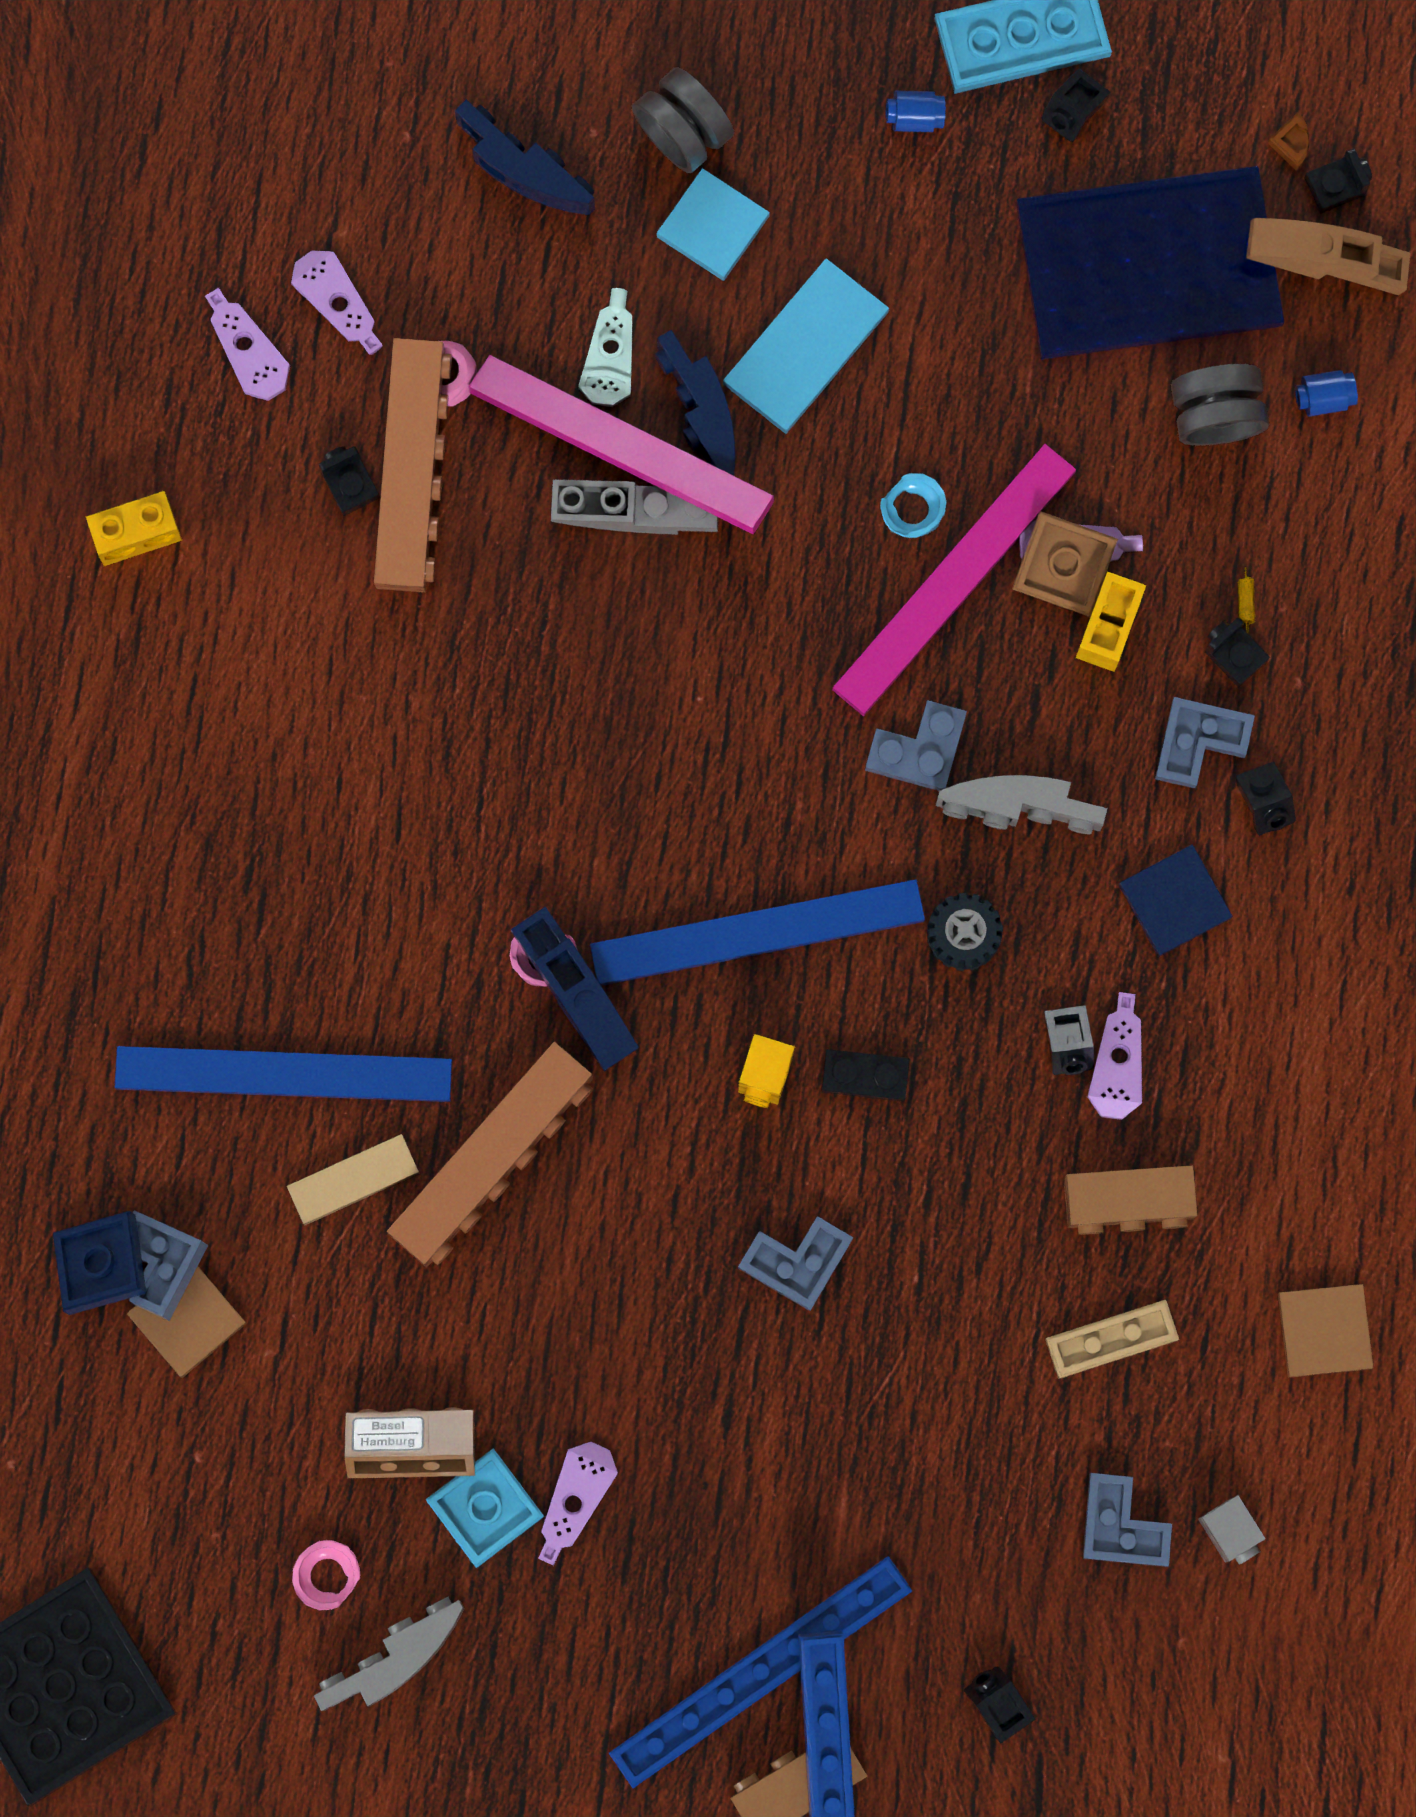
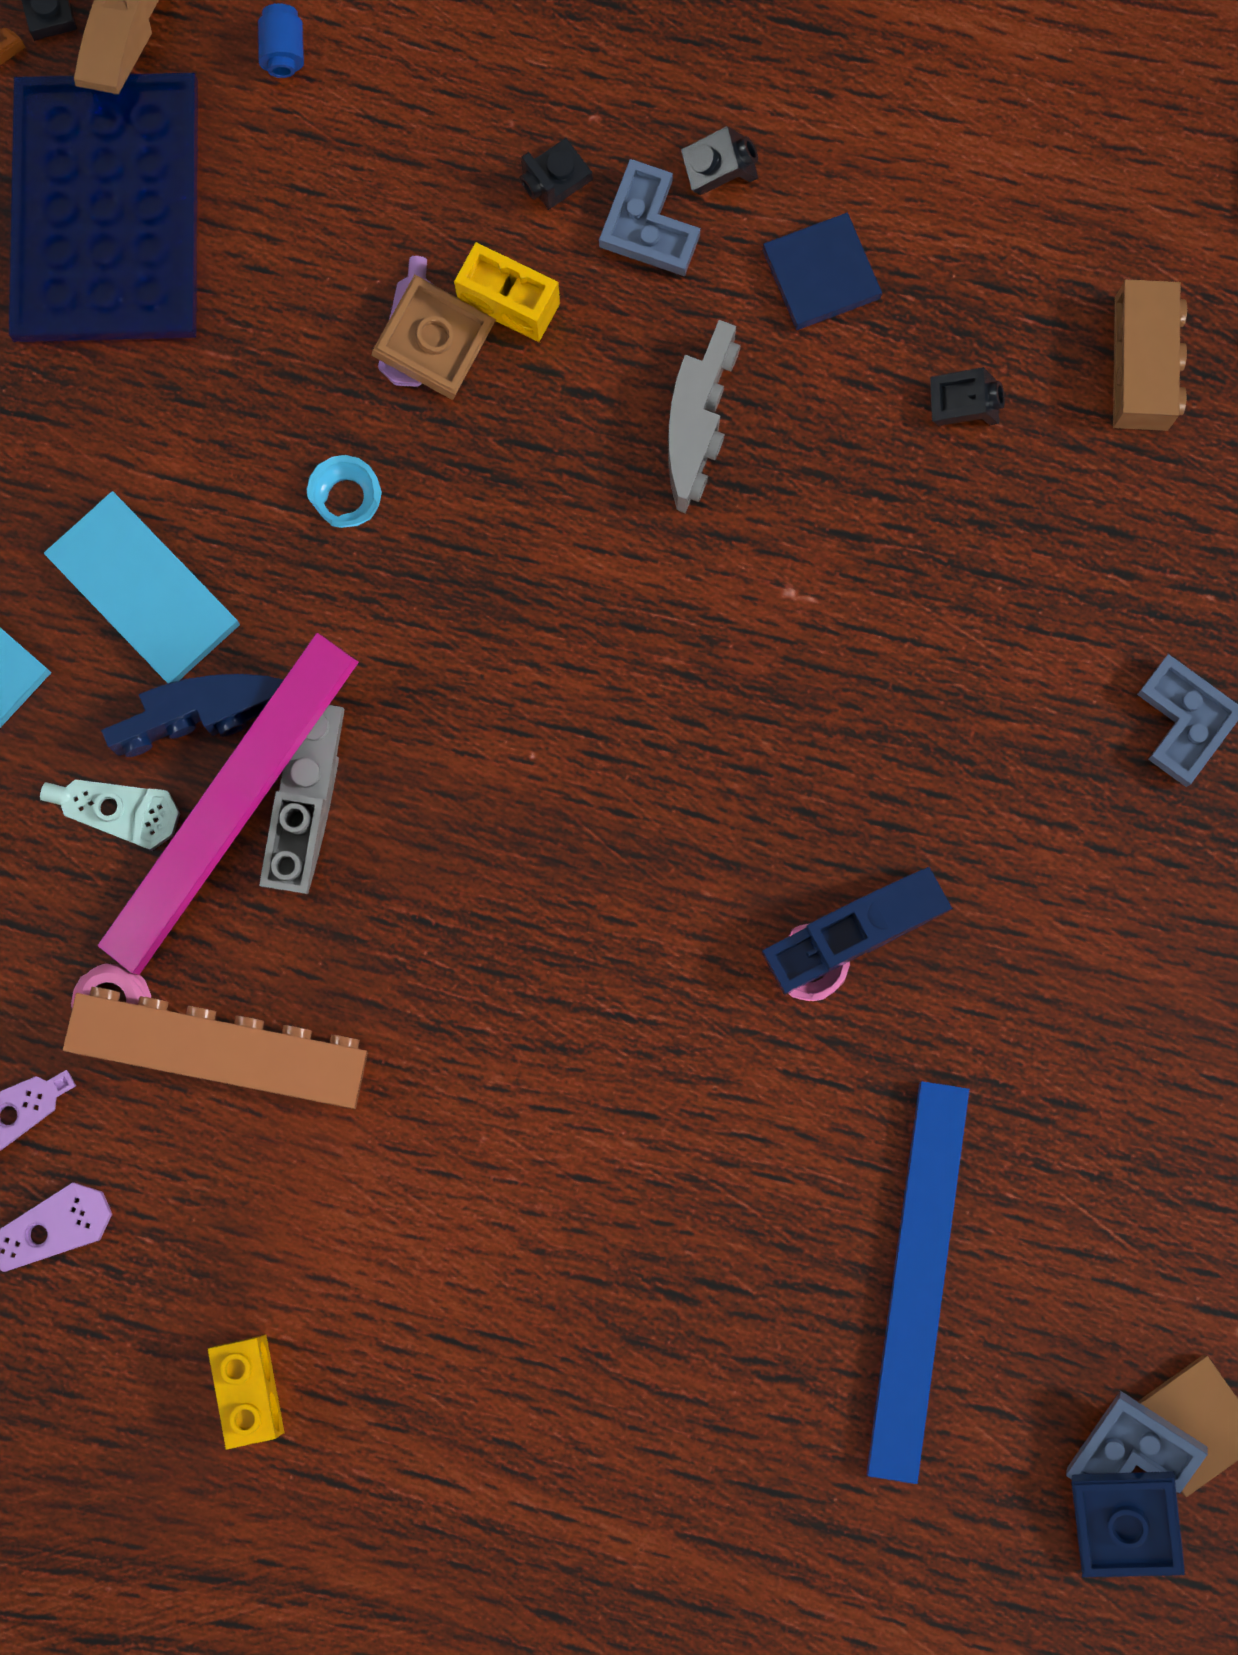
camera: 80 degrees left, 0 degrees up
(348, 479) = (222, 1127): black bracket -> none
(353, 1179) = (1049, 1212): tan tile -> none
(490, 1155) = (1041, 1049): nougat brick -> none
(757, 932) = (809, 723): blue tile -> none
(765, 1071) = (978, 723): yellow brick -> none
(865, 1075) = (982, 622): black plate -> none
(924, 759) = (632, 516): sand blue plate -> none
(954, 580) = (435, 460): dark pink tile -> none
(973, 920) = (844, 481): black wheel -> none
(1114, 1075) = (1008, 347): lavender piece -> none
(1219, 404) = (279, 143): flat silver wheel -> none
(1246, 600) = (497, 156): yellow piece -> none

